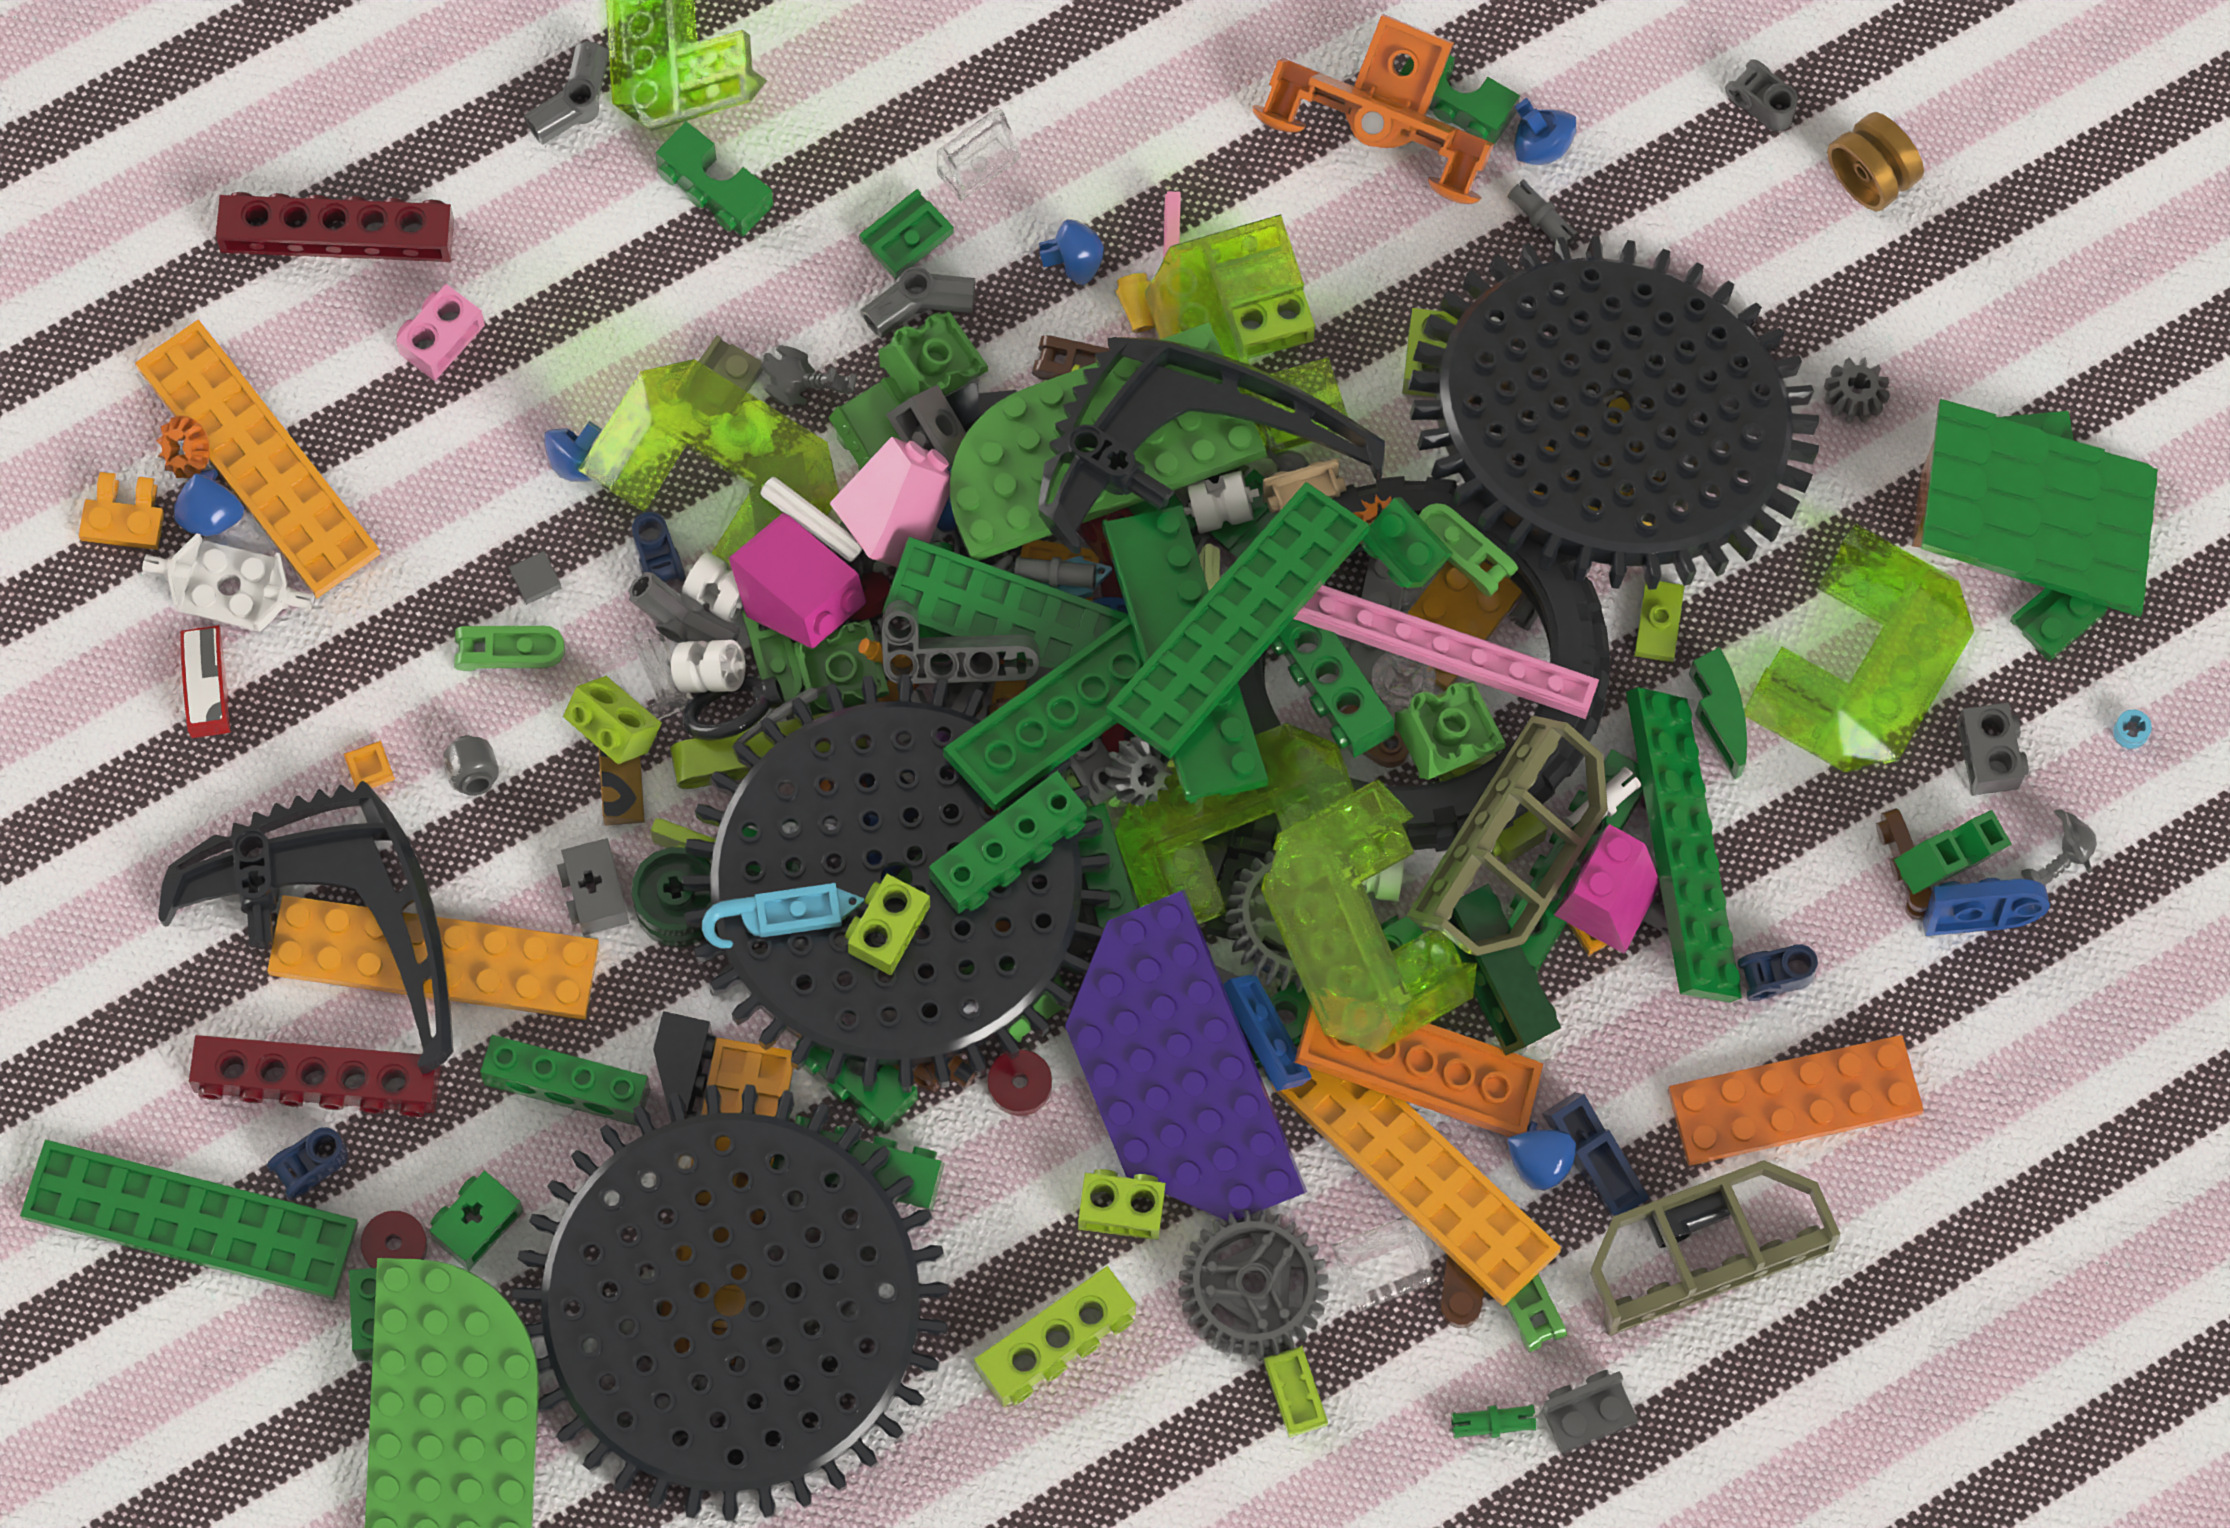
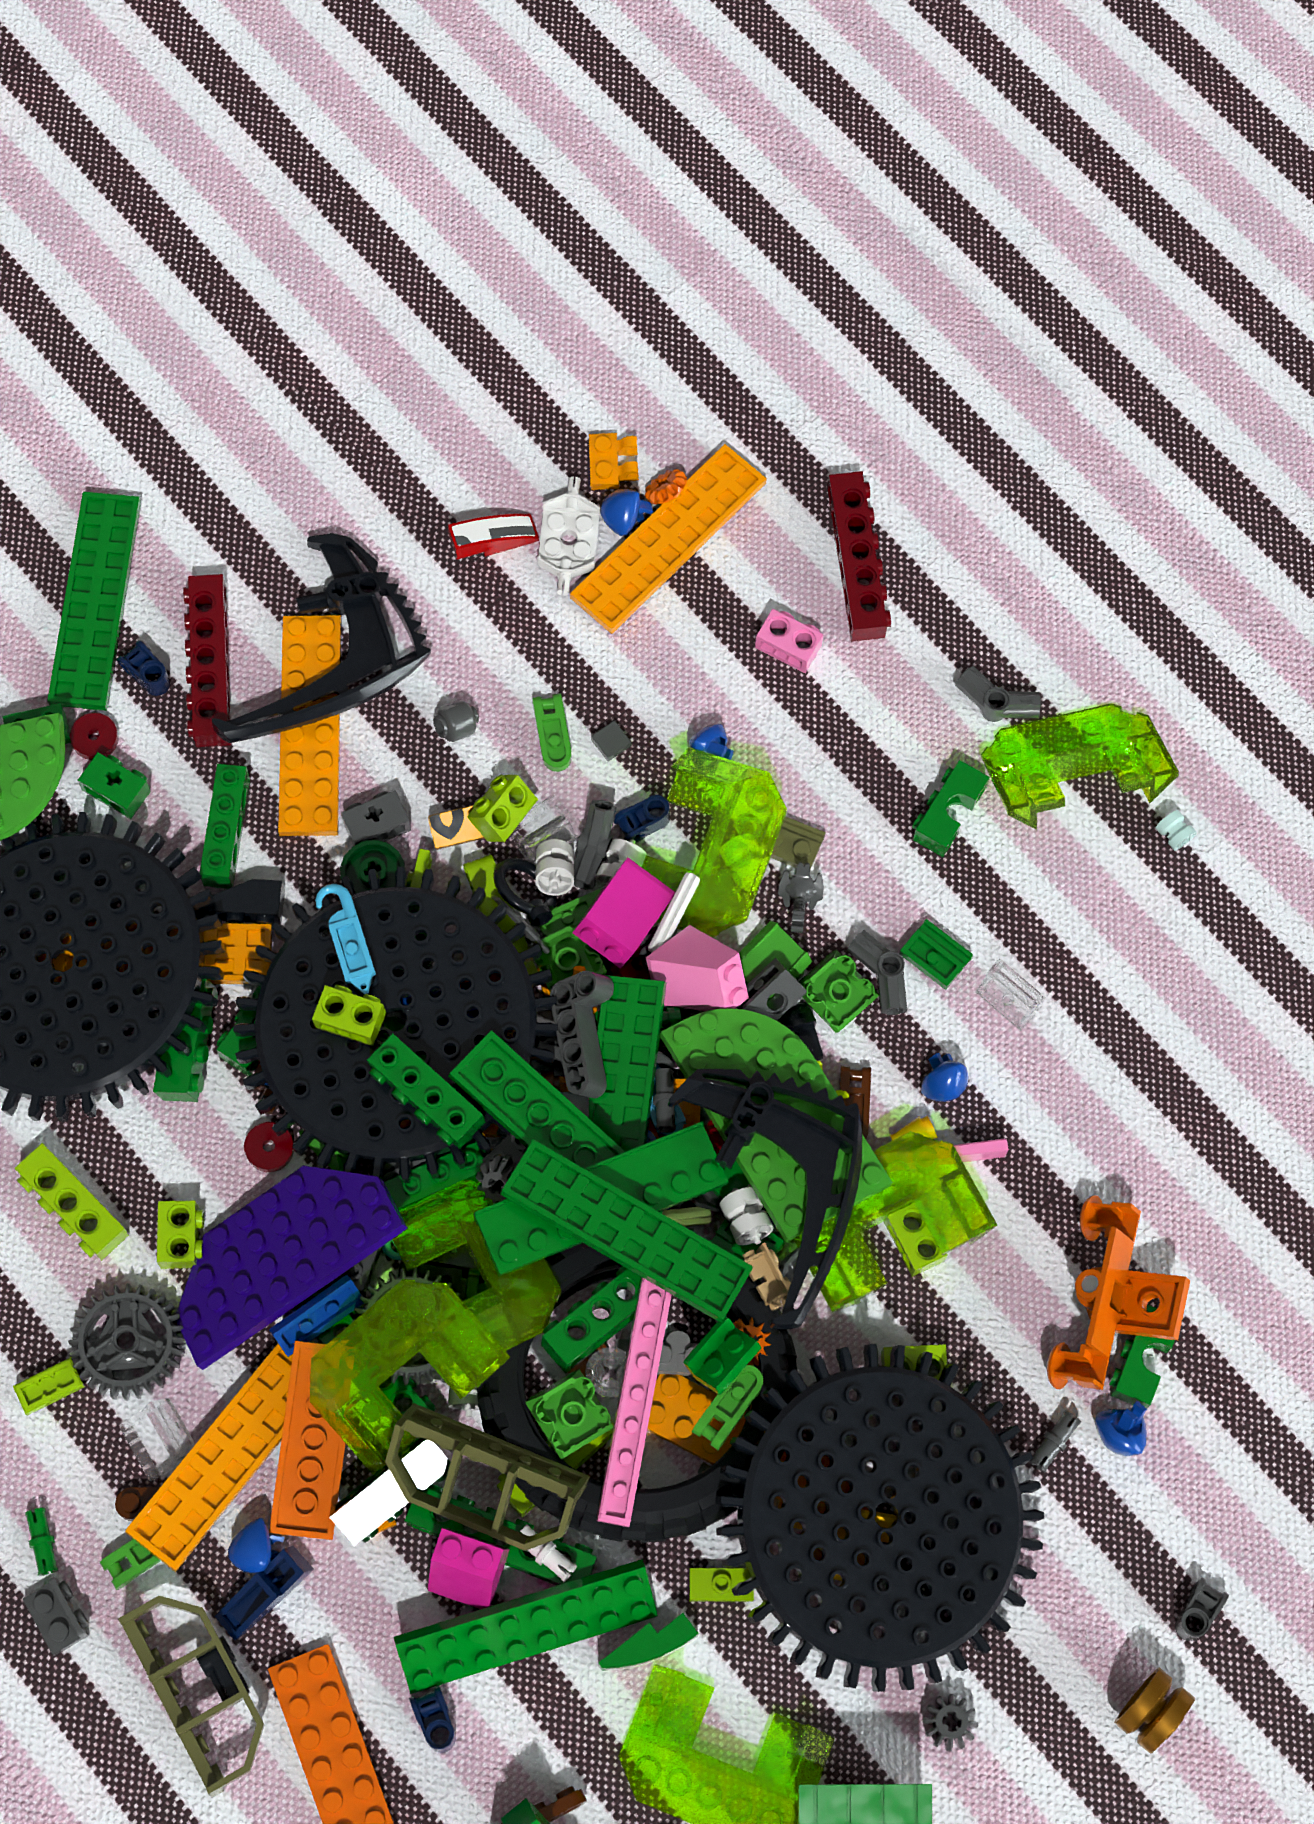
camera: 80 degrees right, 0 degrees up
(369, 765) = (448, 656): light orange tile -> none

